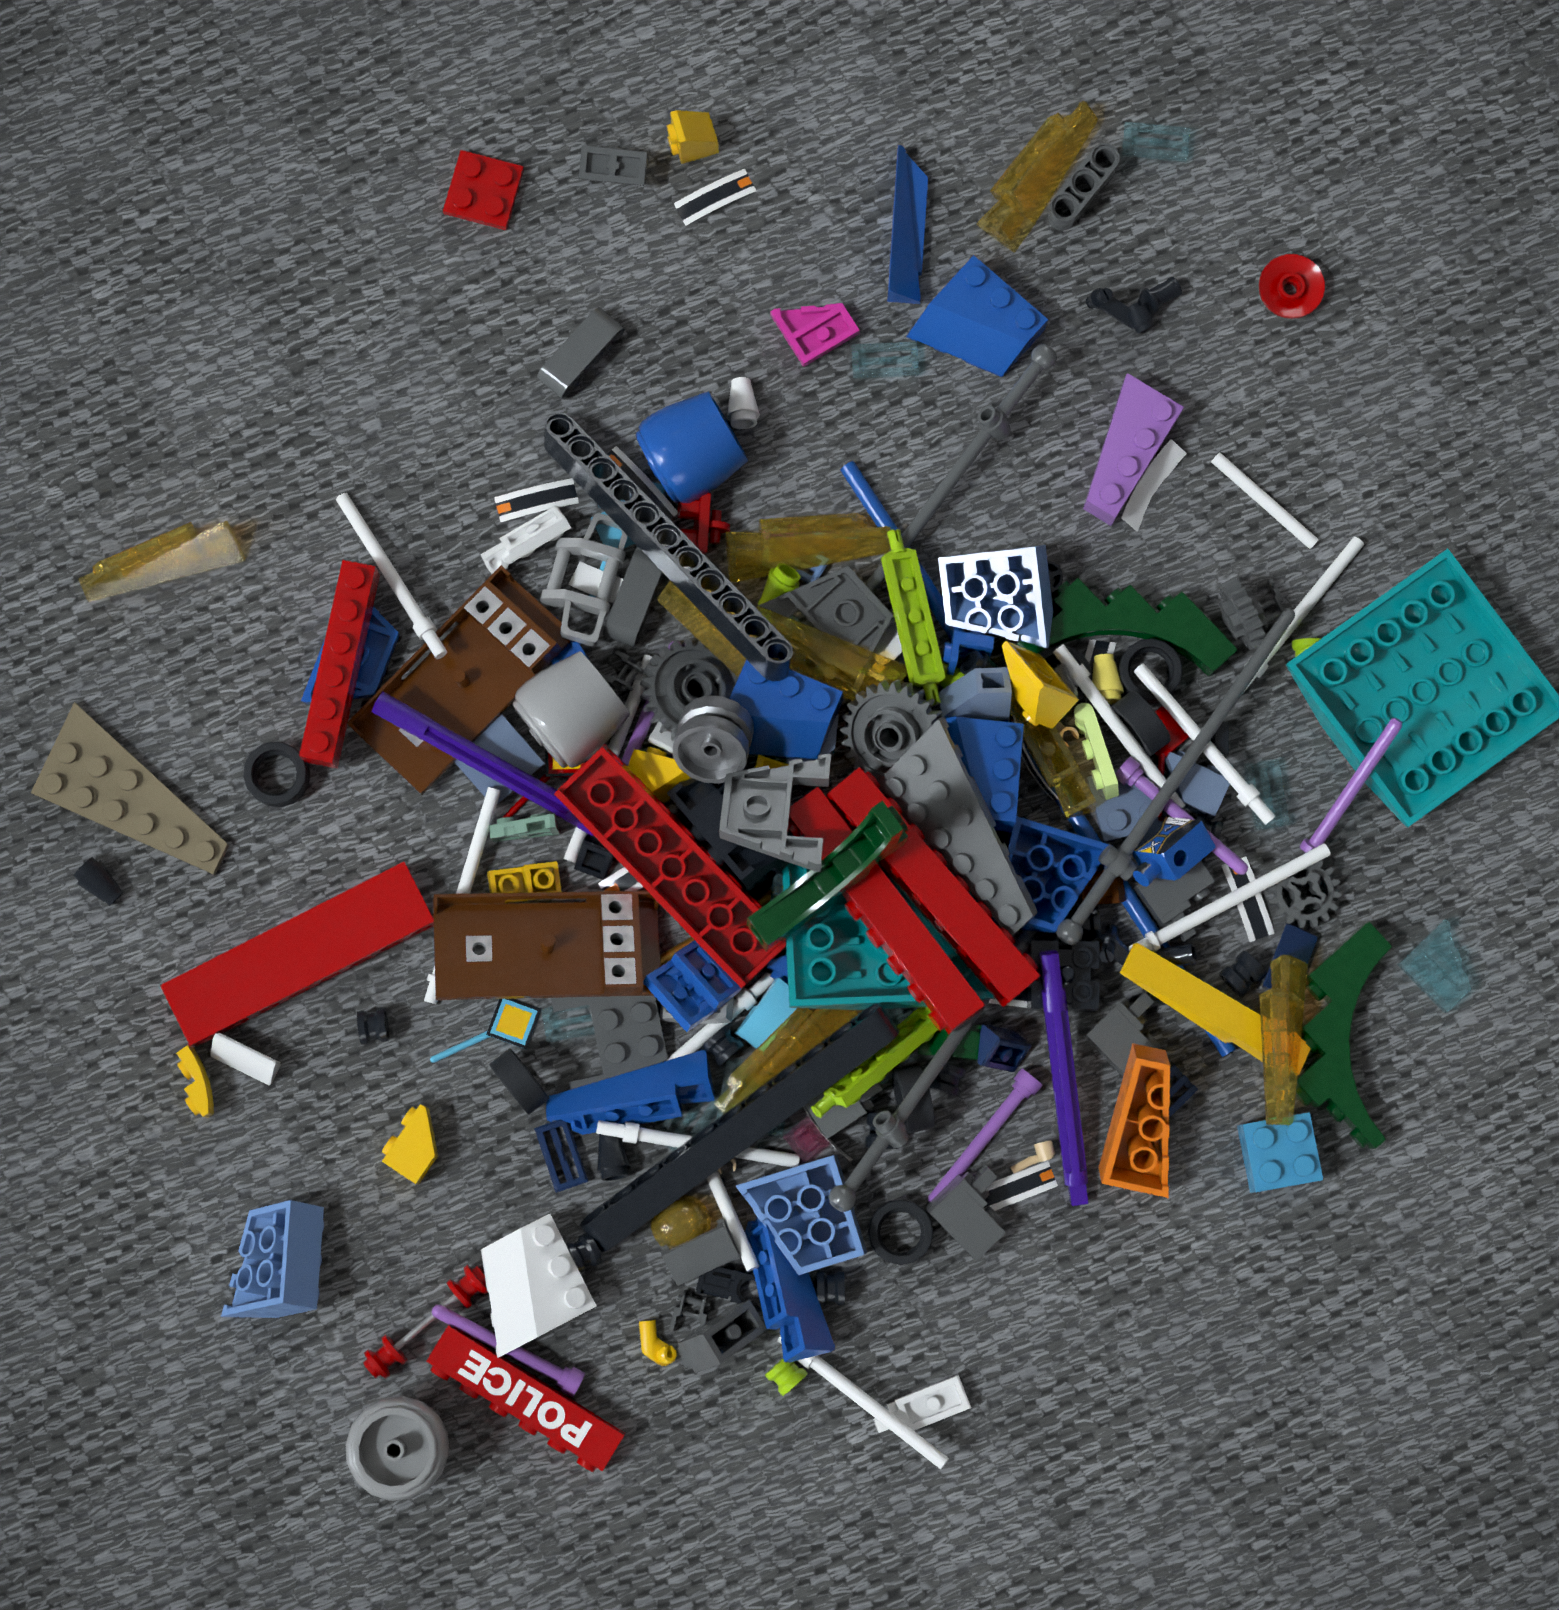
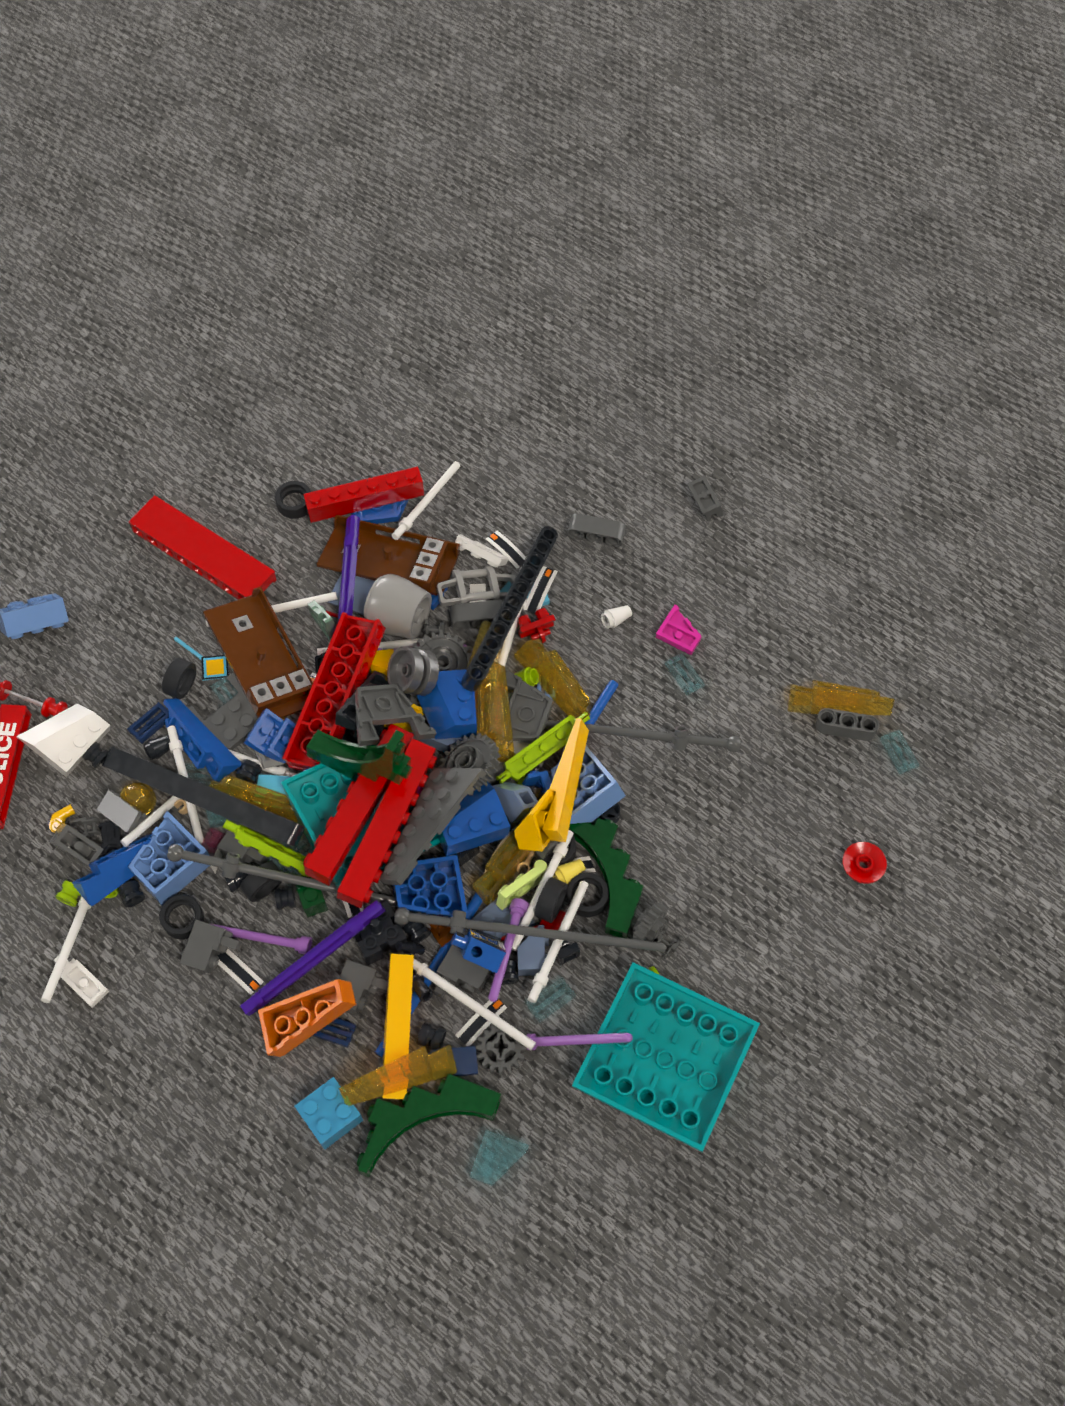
camera: 65 degrees right, 20 degrees down
(98, 881) = (199, 449): black cone -> none
(109, 786) = (249, 441): dark tan wing -> none
(163, 559) = (381, 405): clear yellow wedge -> none
(199, 1092) = (109, 540): yellow slope -> none
(244, 1058) = (136, 553): white slope -> none
(372, 1026) = (179, 600): black wheel -> none
(414, 1148) = (122, 649): yellow slope -> none
(483, 190) = (655, 451): red plate -> none
(525, 879) = (296, 635): yellow slope -> none
(566, 1378) = (22, 782): medium lavender piece -> none
(690, 447) = (575, 598): blue piece -> none
(691, 135) = (744, 522): yellow slope -> none
(714, 196) = (722, 554): sticker -> none
(907, 230) = (761, 648): blue wedge -> none
(979, 320) = (735, 706): blue wedge -> none
(994, 616) = (565, 784): none -> yellow slope
(1001, 1048) = (315, 915): dark blue slope -> none
(1044, 1152) = (266, 975): tan hand -> none
(1133, 439) = (714, 819): medium lavender wedge -> none
(1139, 314) = (794, 789): black pin -> none
(1153, 477) = (711, 844): white sticker -> none
(1264, 500) = (728, 914): white bar -> none
(1315, 595) = (627, 955): white bar -> none

